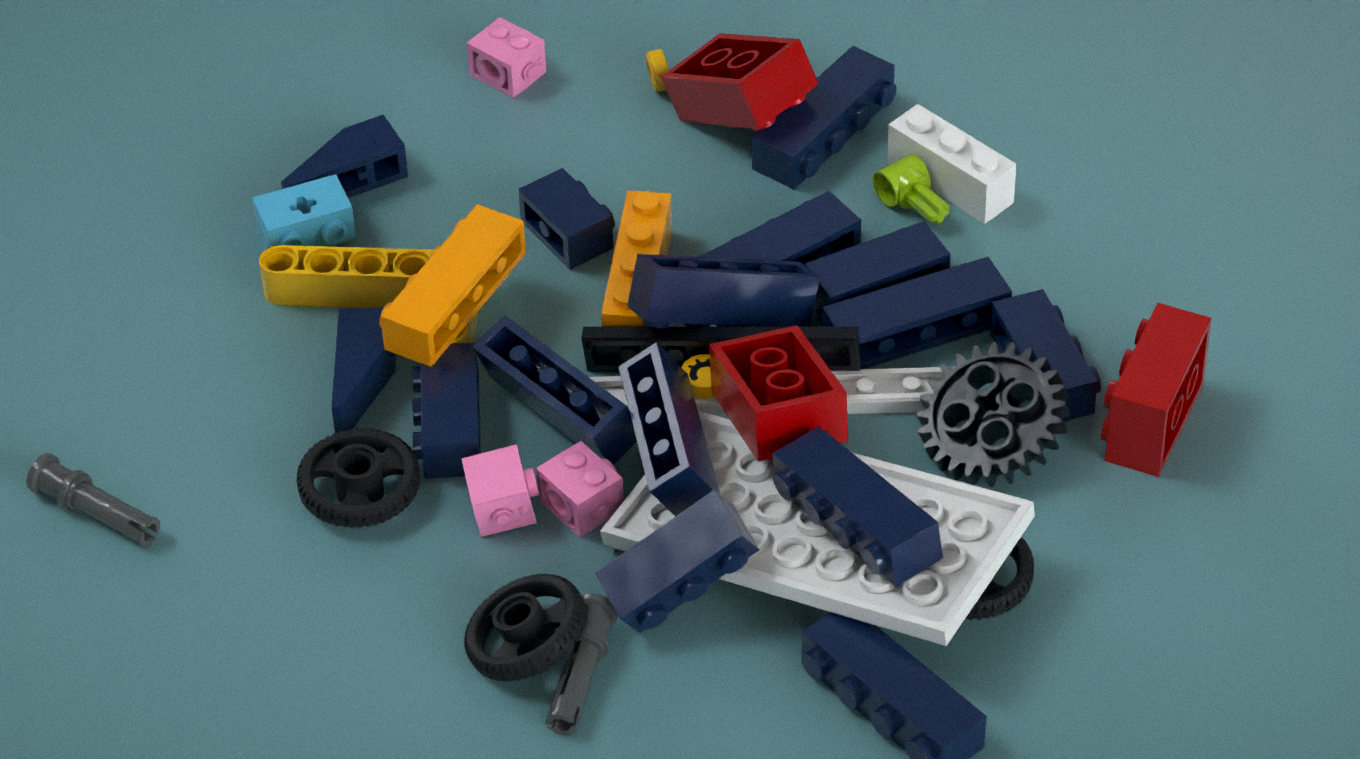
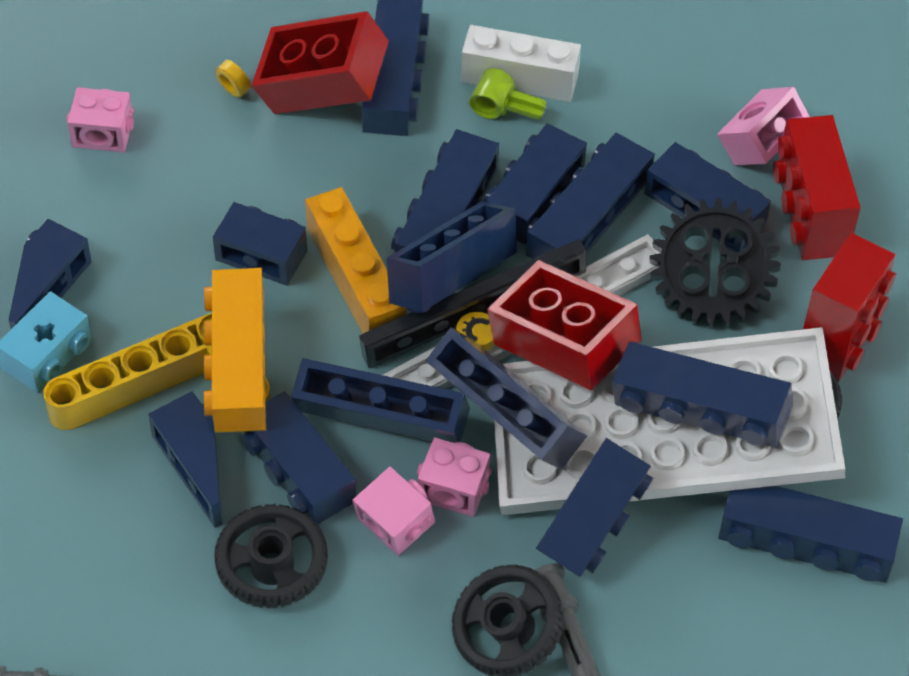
camera: 35 degrees left, 10 degrees up
(1082, 497) = (851, 301): none -> red brick
(1123, 314) = (755, 129): none -> bright pink brick

